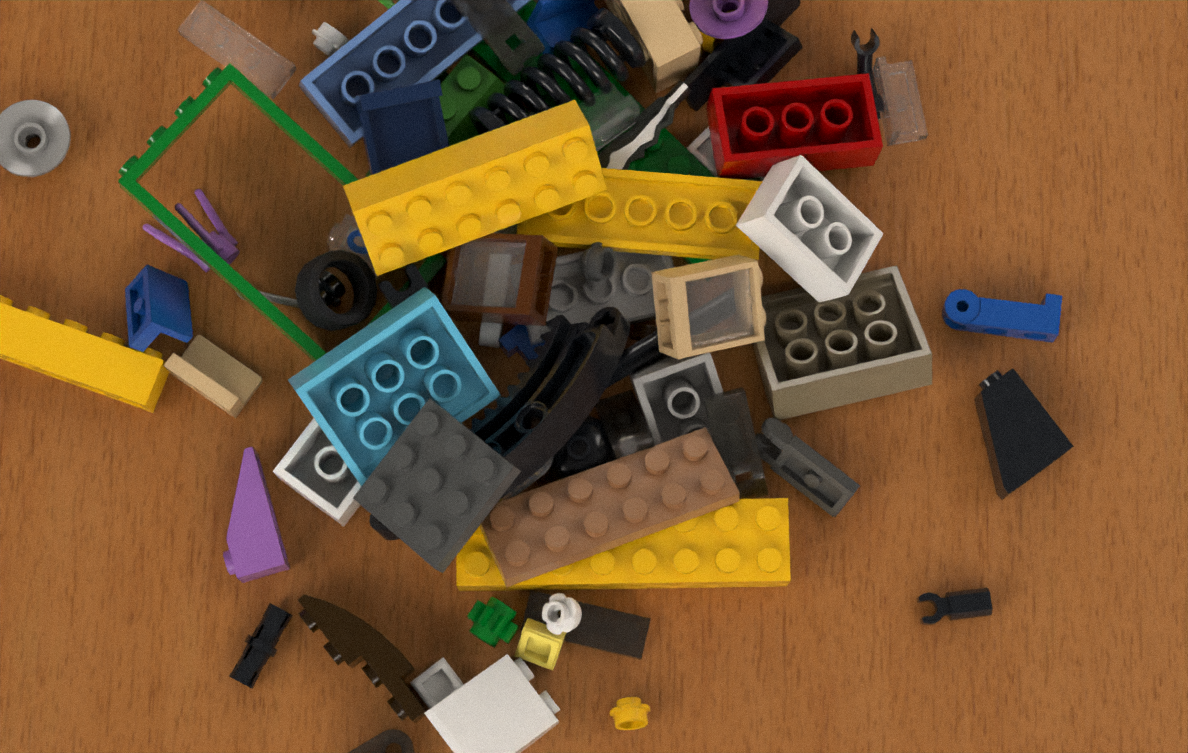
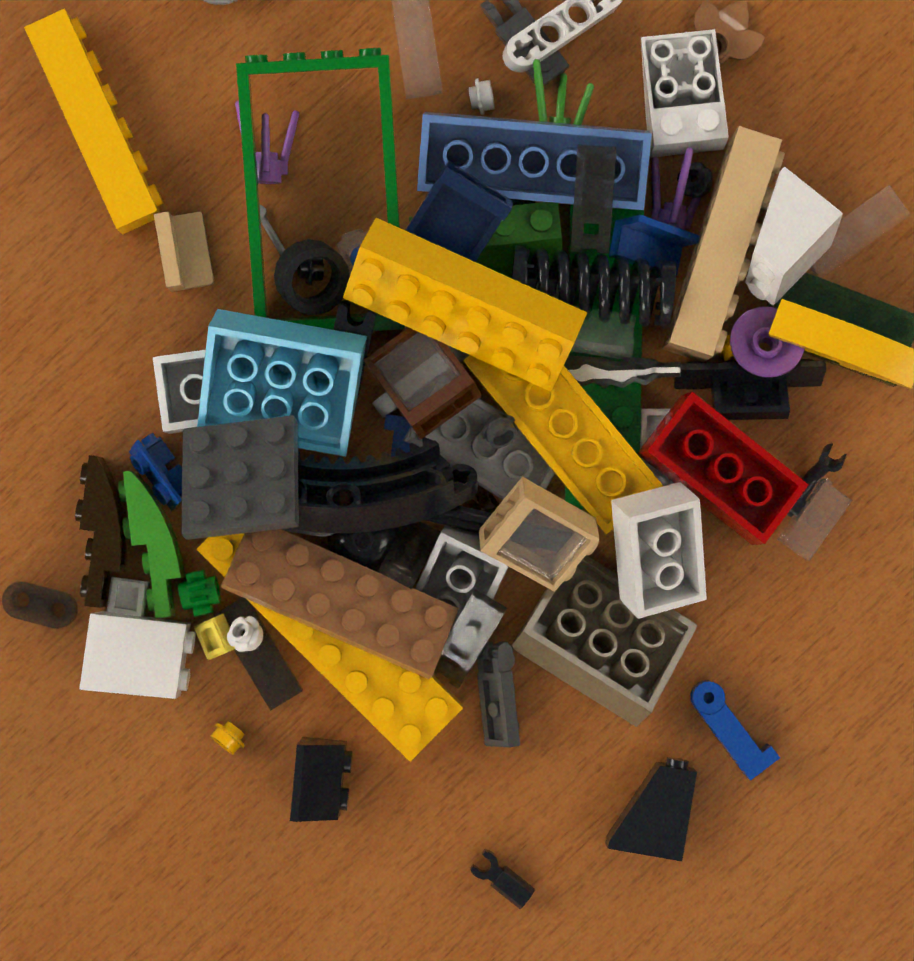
camera: 45 degrees right, 10 degrees up
(155, 306) = (188, 170): blue panel -> none
(253, 529) = (107, 381): medium lavender slope -> none
(261, 645) = (41, 458): black pin -> none
(385, 566) = (151, 461): none -> blue hinge
(403, 610) = (151, 526): none -> bright green slope
(735, 669) = (319, 779): none -> black slope

